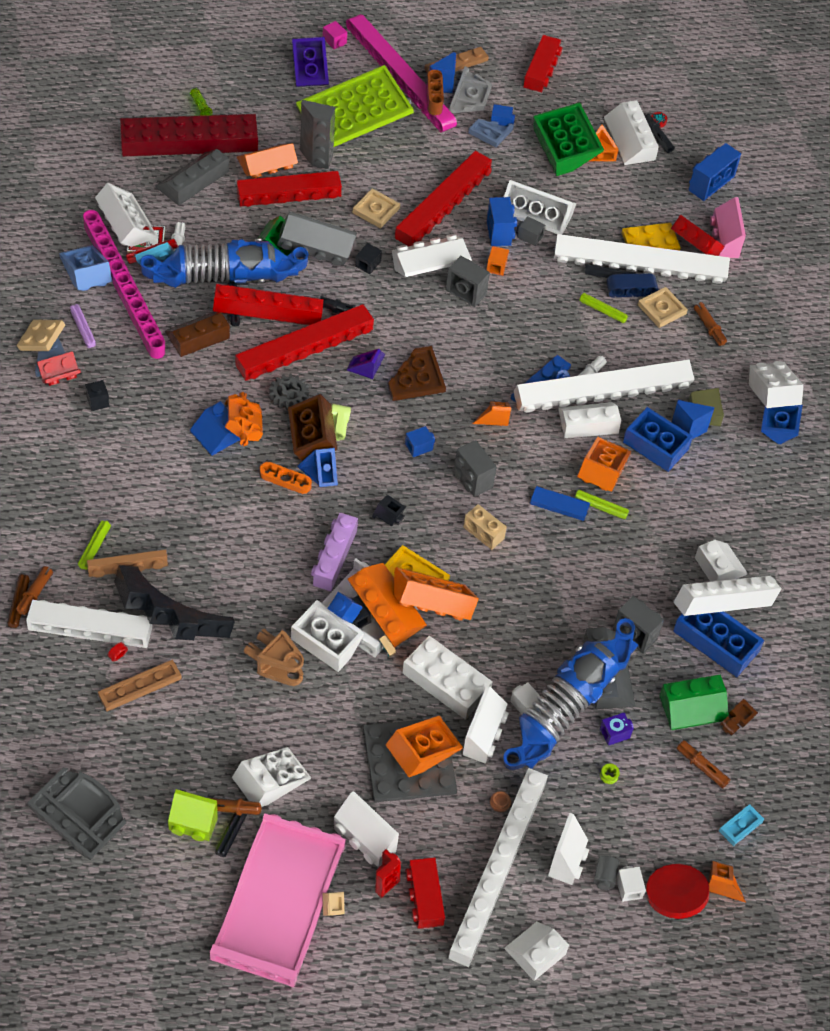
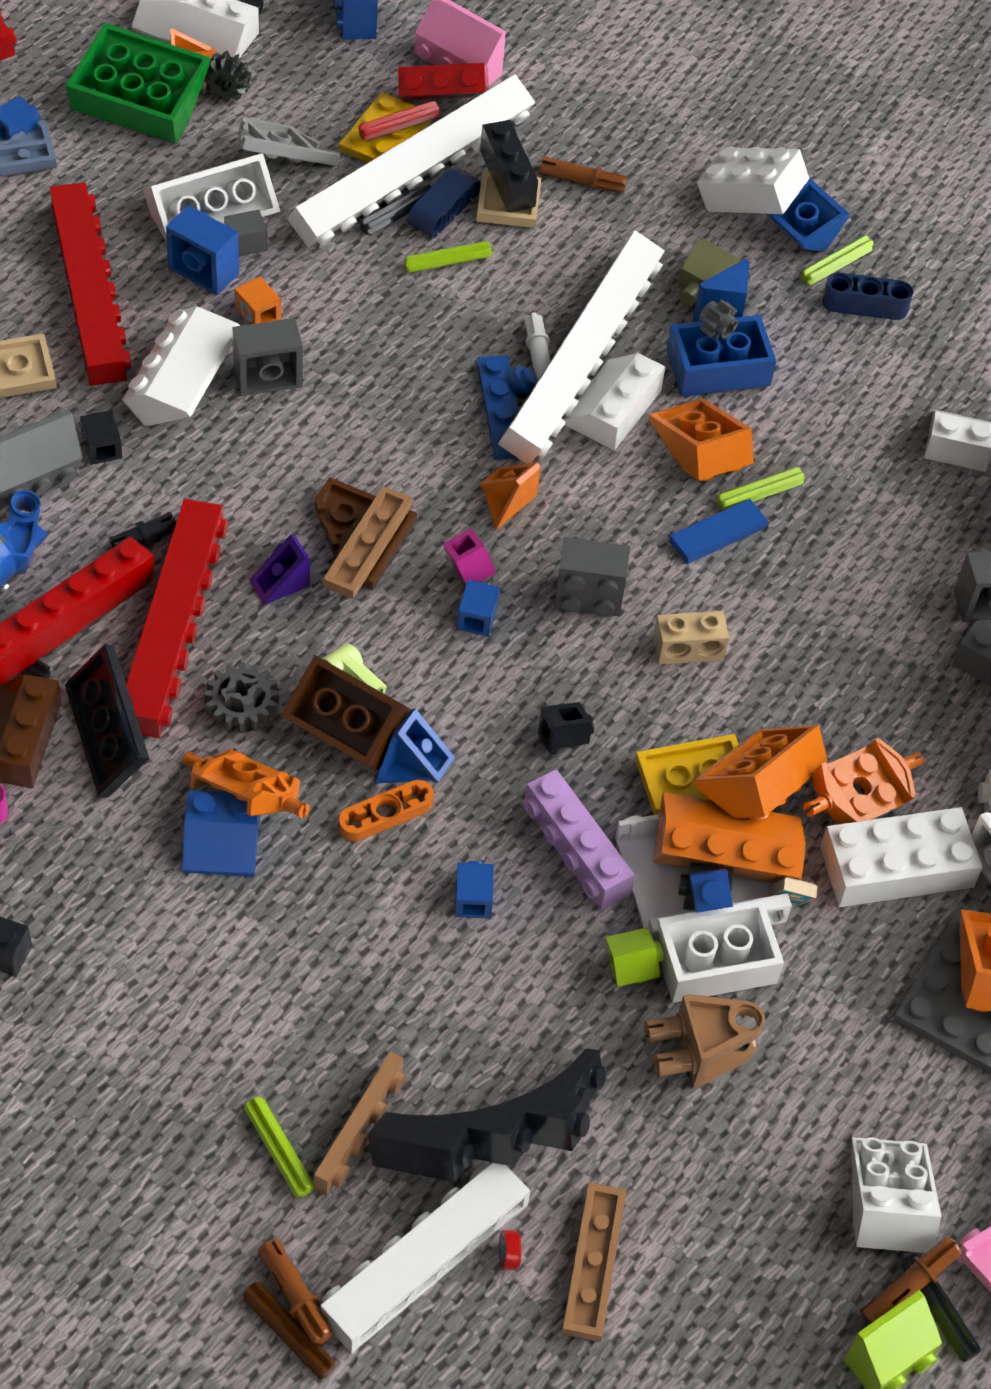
camera: 50 degrees left, 0 degrees up
(228, 354) = (106, 721): none -> black tile
(274, 531) = (474, 890): none -> blue brick
(293, 606) = (634, 956): none -> lime brick
(408, 379) = (367, 542): none -> medium nougat plate
(439, 420) = (469, 557): none -> dark pink brick
(486, 639) = (878, 770): none -> orange plate
(594, 206) = (284, 141): none -> light grey wing
(609, 164) = (227, 76): none -> pearl dark grey gear
(656, 238) = (398, 120): none -> axle
(664, 419) = (718, 319): none -> dark grey gear
(673, 291) = (509, 165): none -> black brick
(764, 475) = (867, 296): none -> dark blue beam
(775, 451) = (836, 260): none -> lime axle

